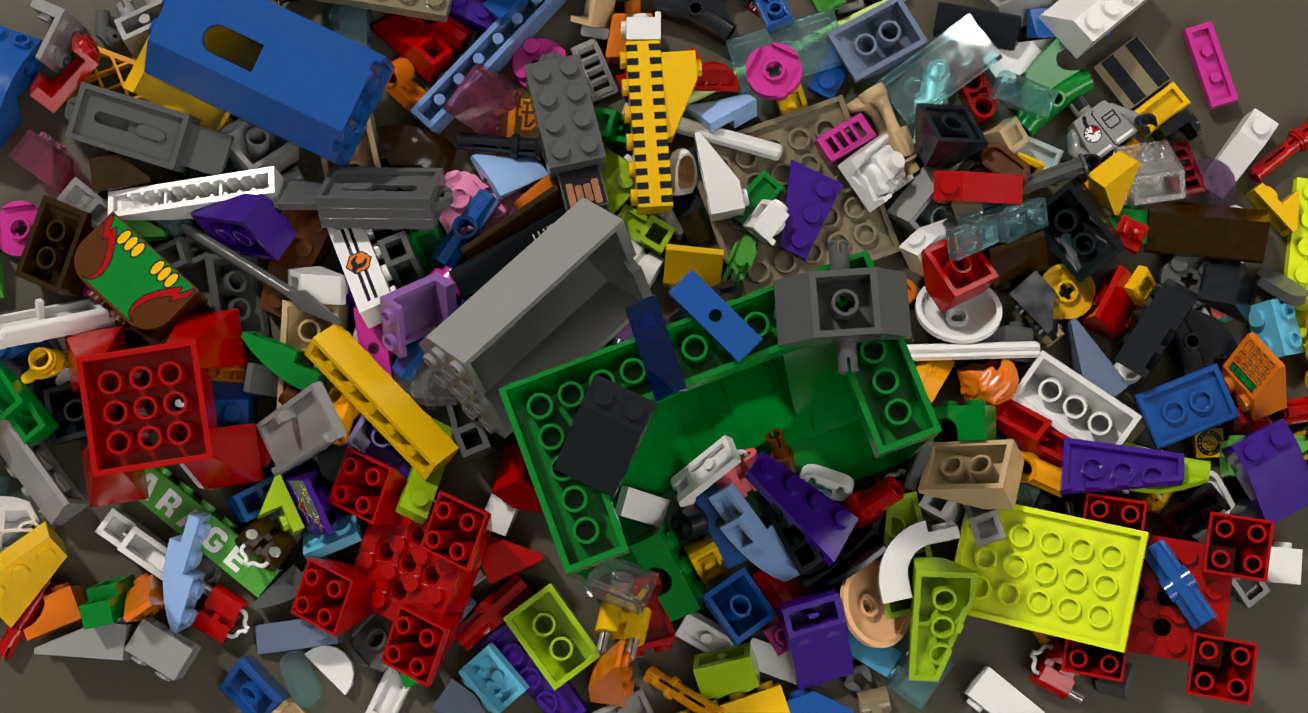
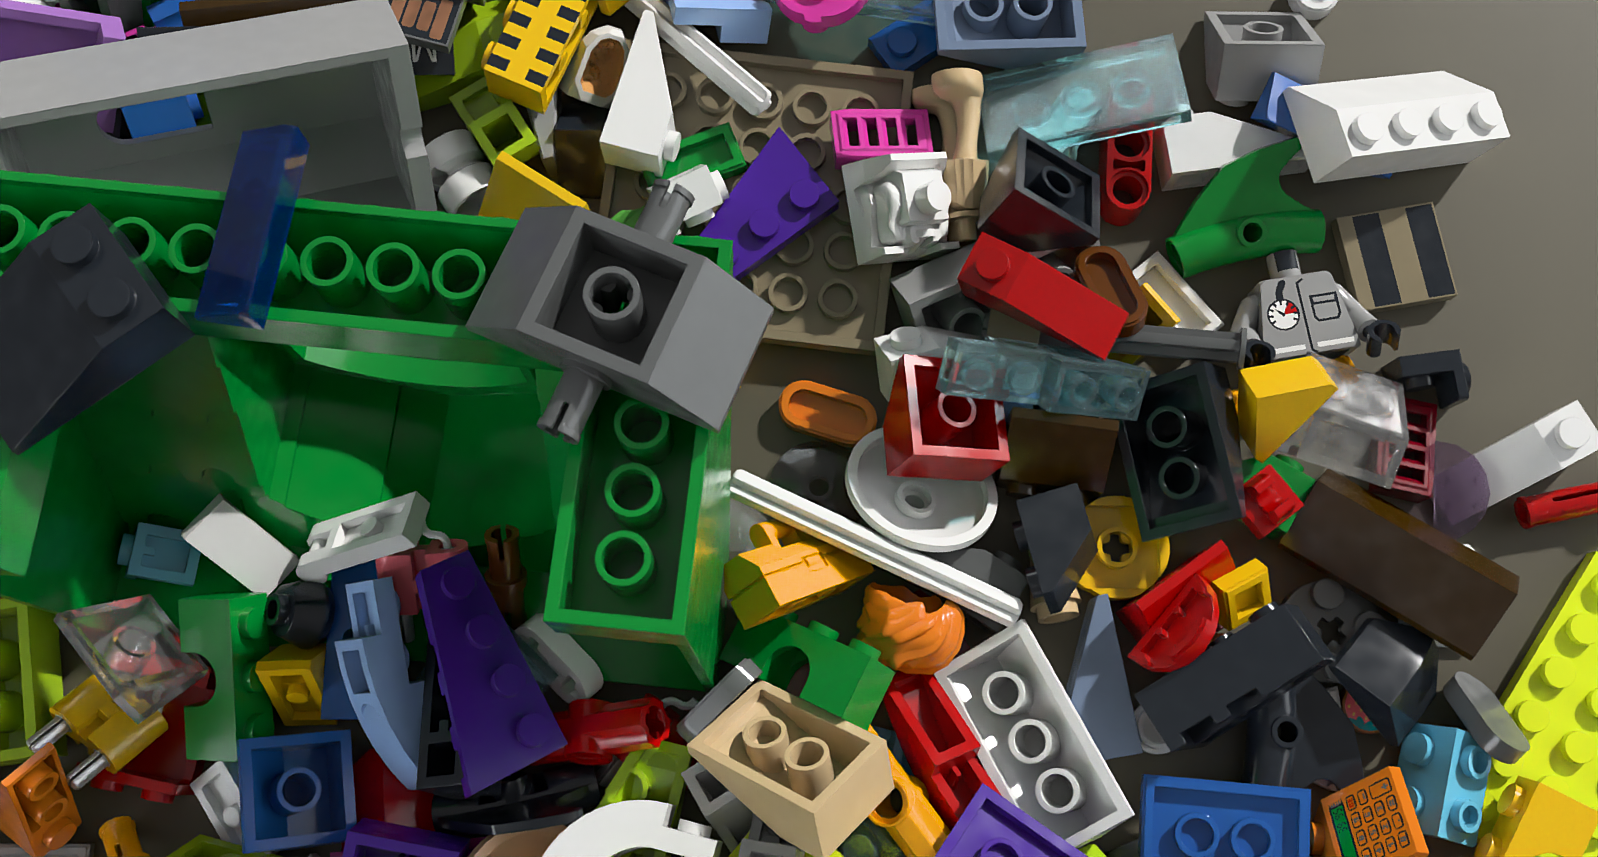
camera: 25 degrees right, 5 degrees down
(700, 302) = (376, 187): blue tile -> none
(793, 102) = (835, 45): yellow tile -> none
(999, 27) = (1212, 79): black slope -> none
(1008, 133) = (1146, 252): tan panel -> none
(1023, 94) = (1196, 193): clear light blue brick -> none
(1121, 319) = (1181, 629): none -> red plate
(1164, 105) = (1423, 331): yellow tile -> none
(1210, 65) = (1531, 304): dark pink plate -> none
(1282, 214) = (1541, 600): yellow slope -> none

